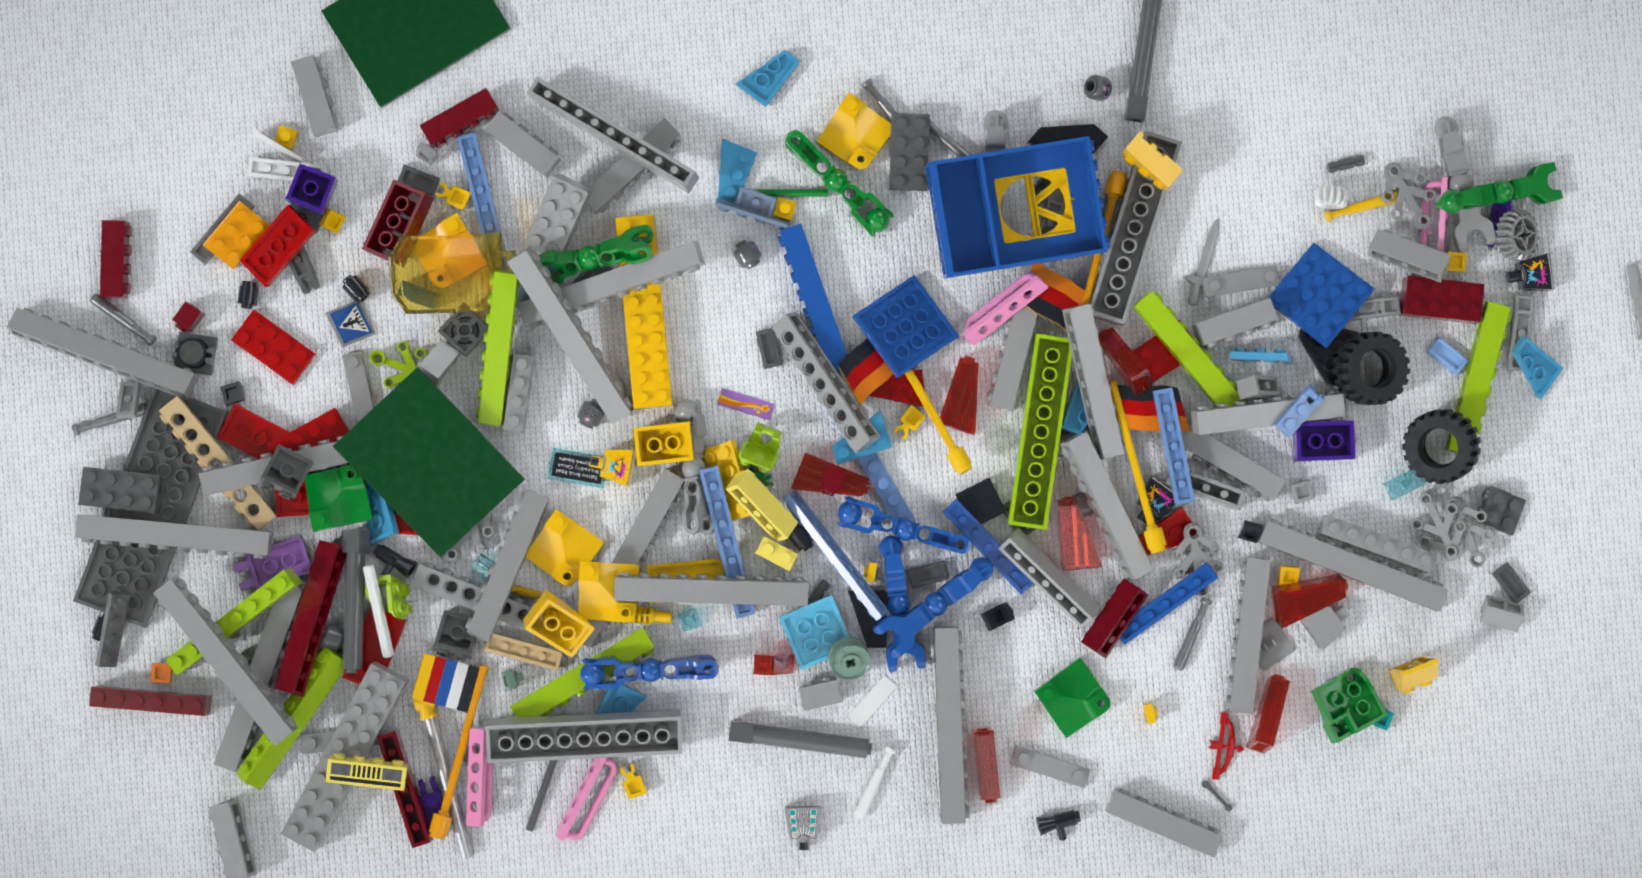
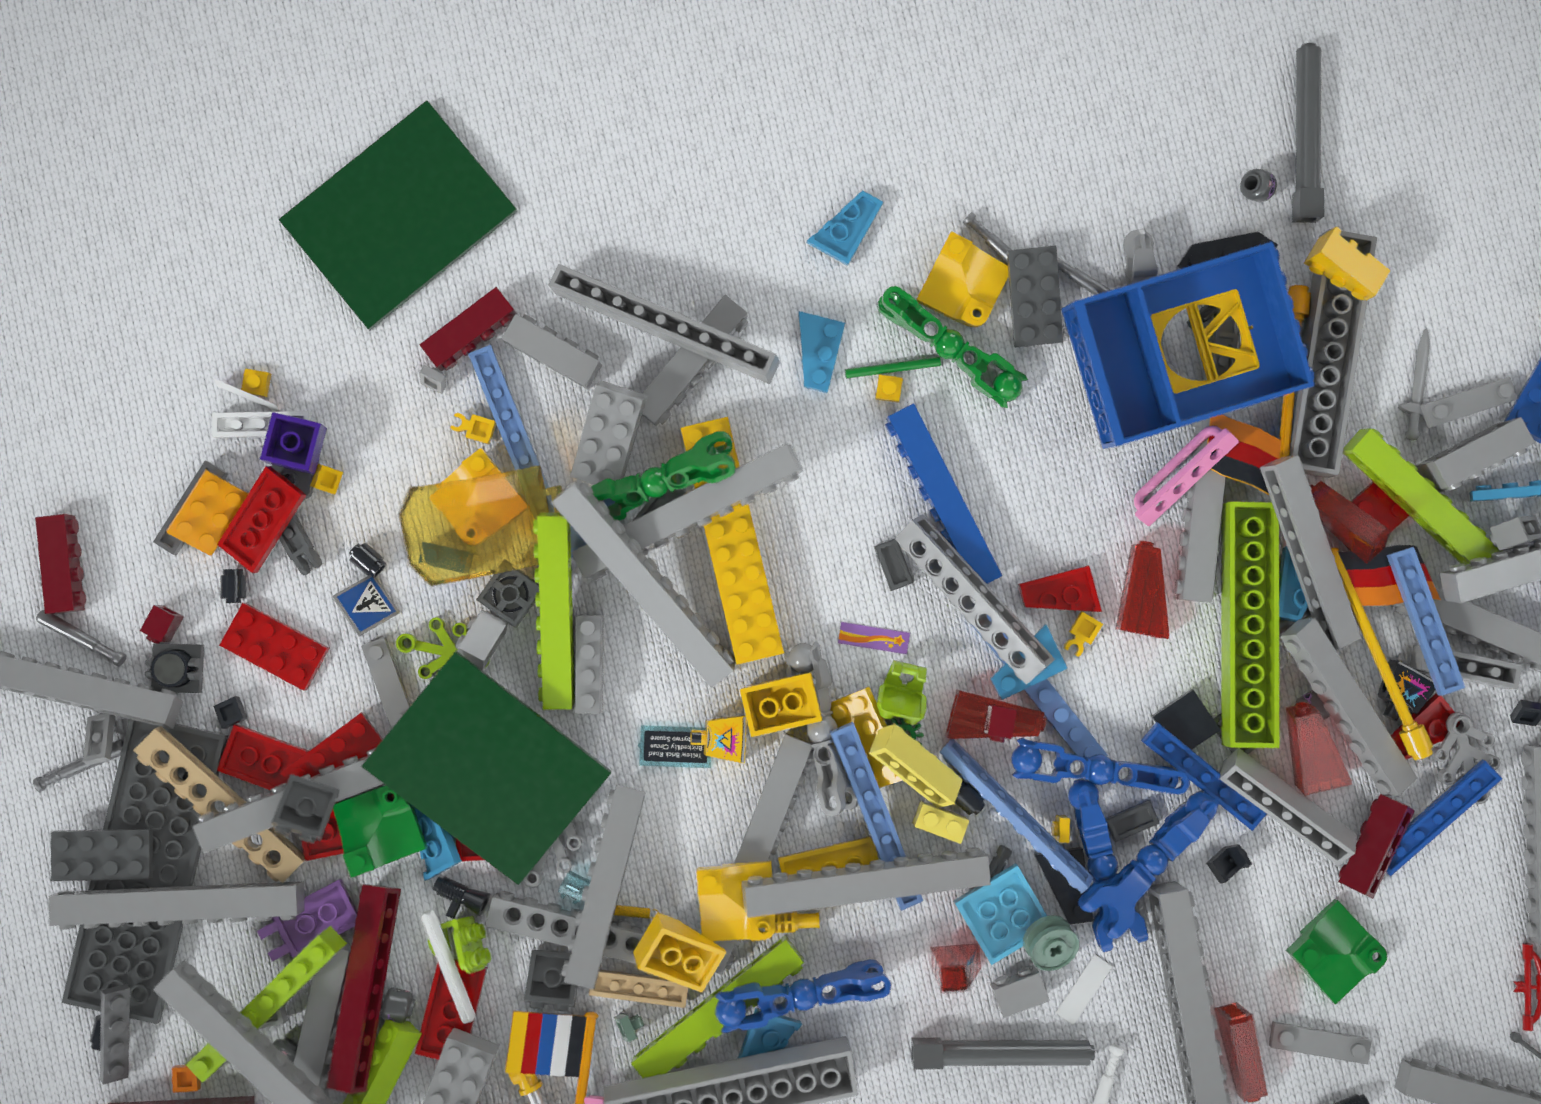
camera: 10 degrees left, 0 degrees up
(314, 95) = (284, 325): light grey brick -> none
(356, 546) = (408, 884): dark grey brick -> none
(399, 215) = (409, 460): dark red brick -> none
(419, 180) = (428, 414): dark grey tile -> none
(562, 547) = (672, 850): yellow slope -> none
(590, 414) = (682, 677): dark grey head -> none
(689, 619) = (841, 919): clear light blue tile -> none
(747, 254) = (850, 451): dark grey head -> none
(754, 205) = (852, 388): sand blue bracket -> none
(867, 371) = (1030, 568): flag -> none
(905, 326) = (1062, 515): blue plate -> none
(1150, 713) = (1436, 959): yellow plate -> none
(1188, 643) = (1469, 865): flat silver piece -> none

